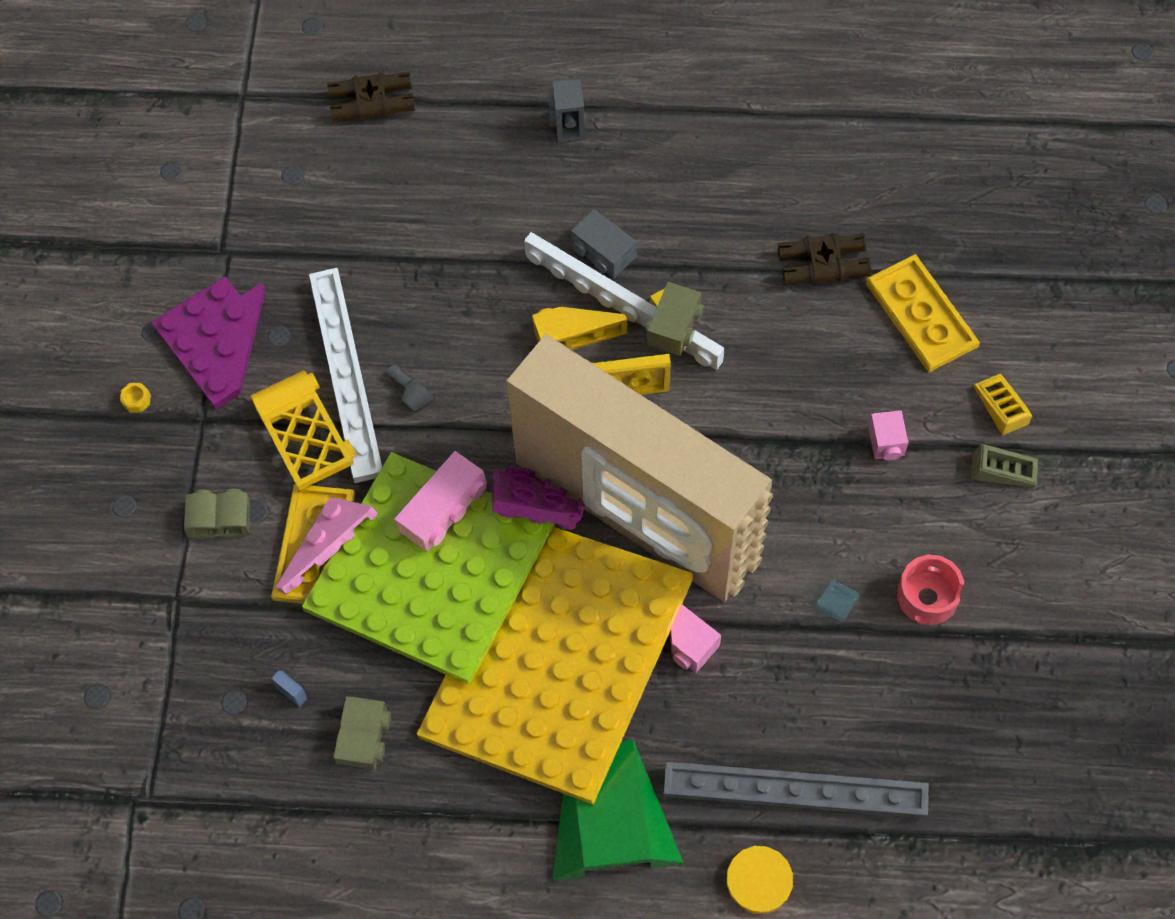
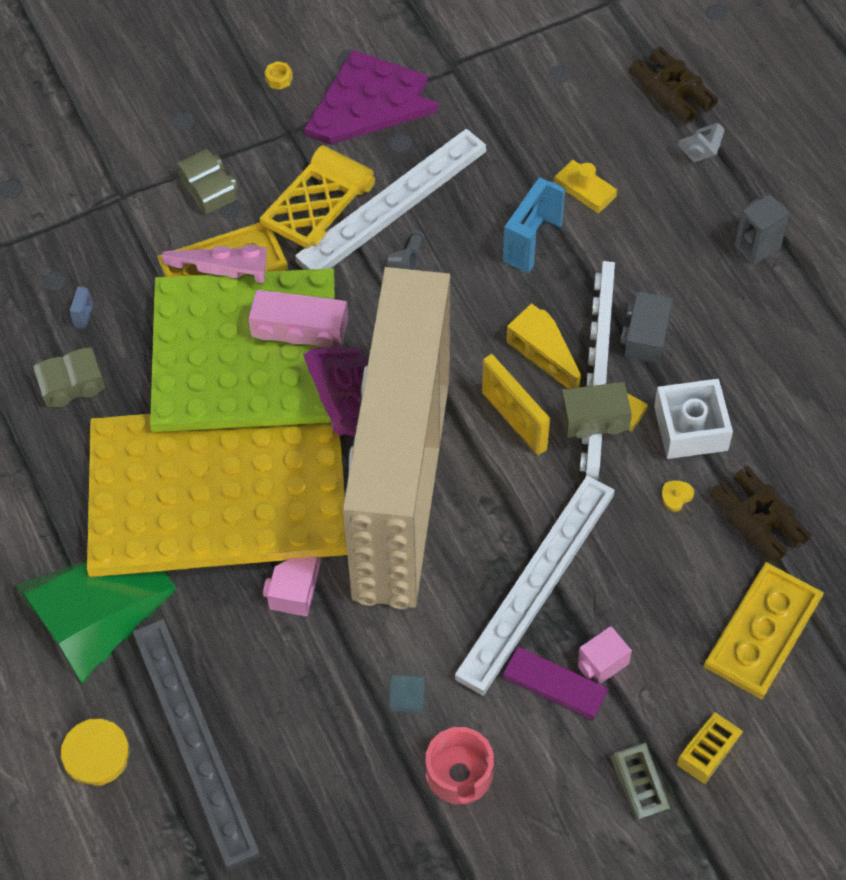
camera: 60 degrees right, 5 degrees down
(427, 216) = (585, 185): none -> yellow tile
(448, 105) = (704, 142): none -> light grey bracket
(462, 292) = (521, 238): none -> dark azure panel
(714, 257) = (693, 418): none -> white brick
(767, 309) = (676, 494): none -> yellow piece
(795, 453) = (534, 586): none -> white plate
(888, 484) = (555, 683): none -> magenta tile

